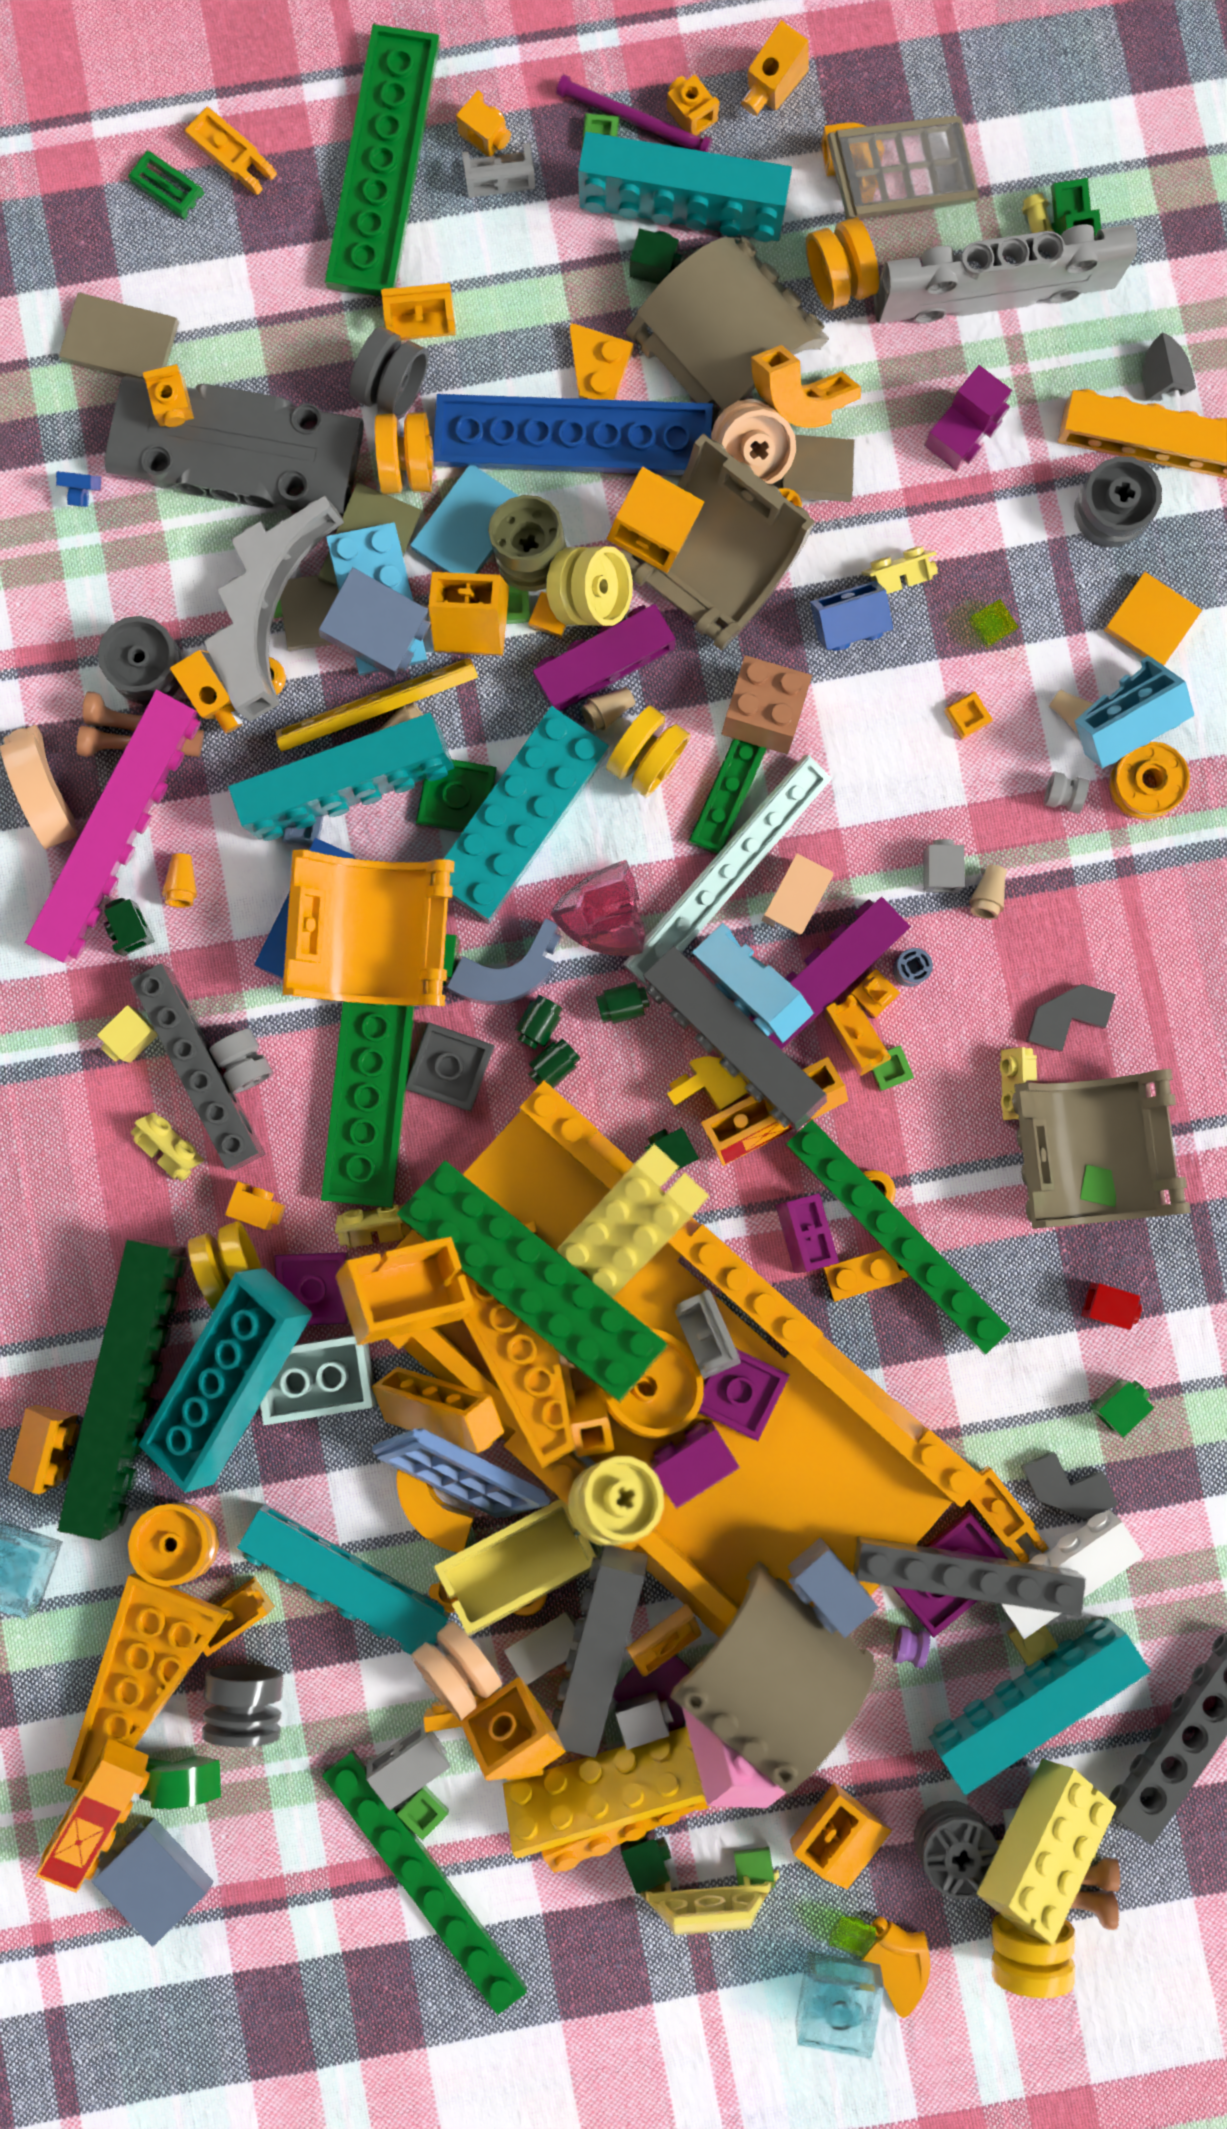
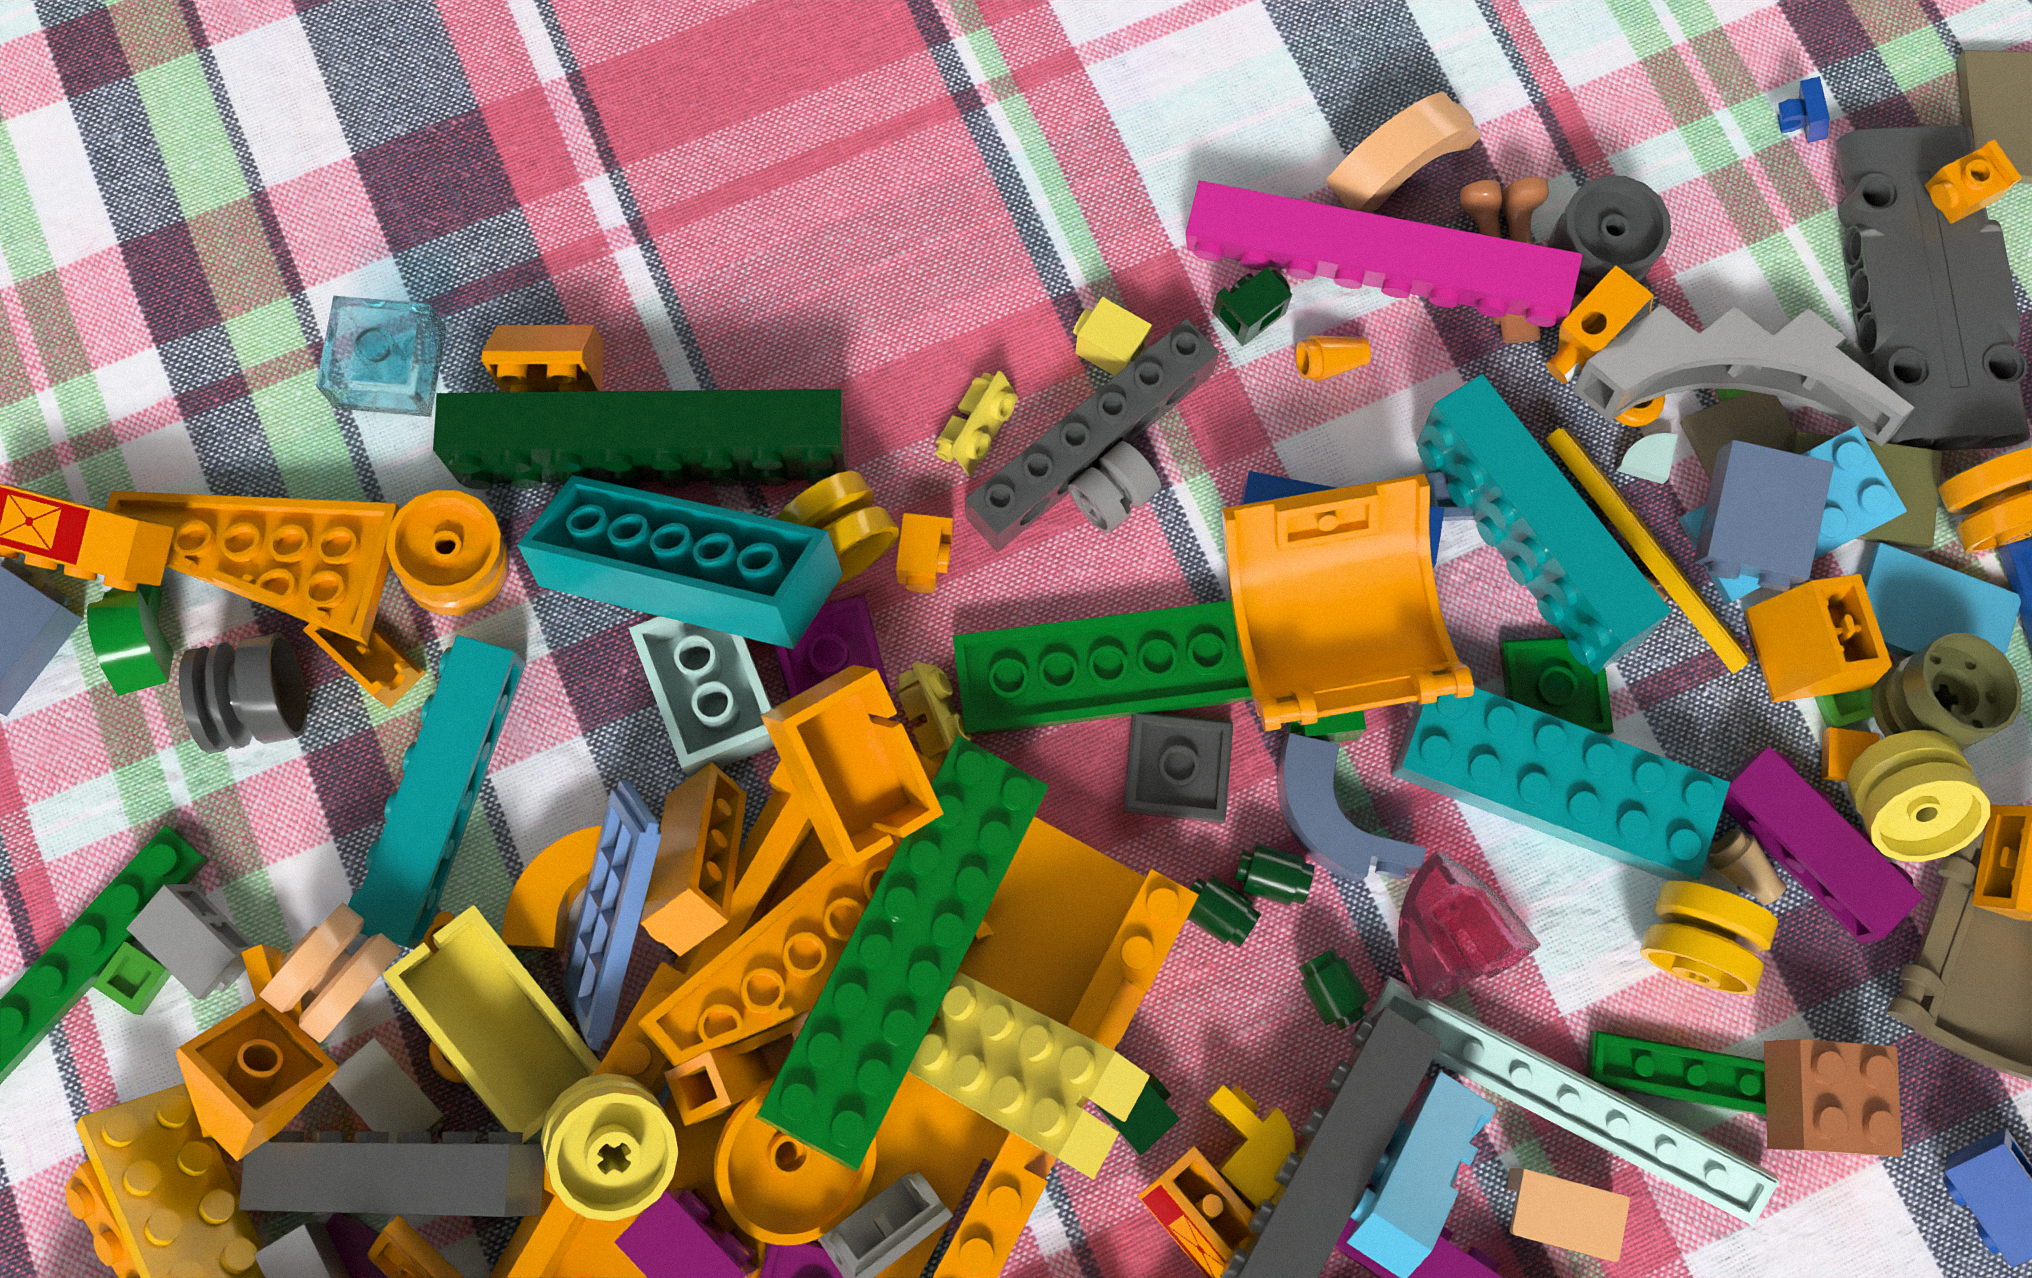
camera: 75 degrees right, 10 degrees down
(310, 680) = (1650, 457): none -> light aqua tile

